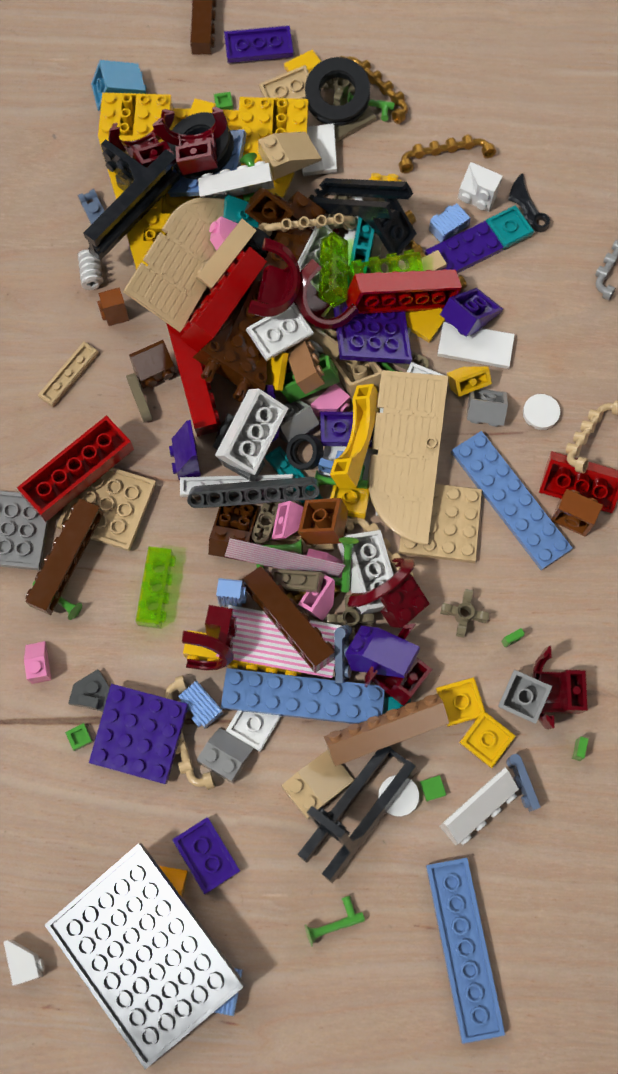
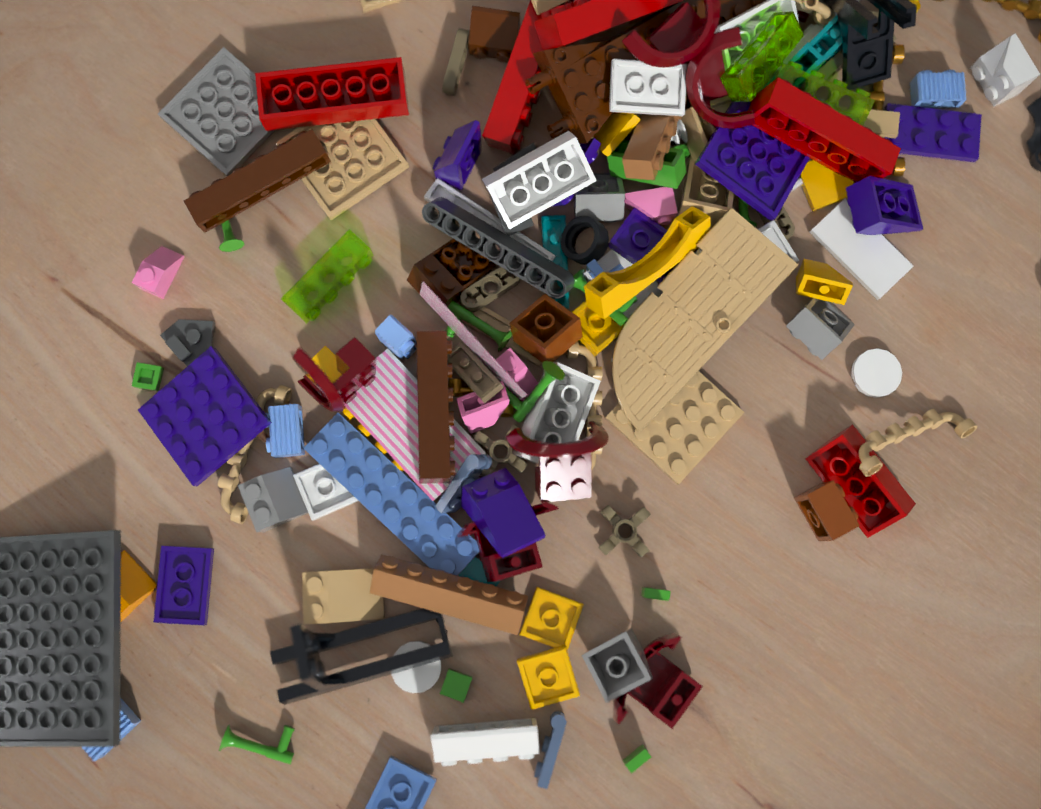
camera: 35 degrees right, 10 degrees up
(287, 520) = (510, 301): bright pink slope -> none
(510, 226) = (1004, 140): teal plate -> none
(511, 500) = (768, 446): medium blue plate -> none

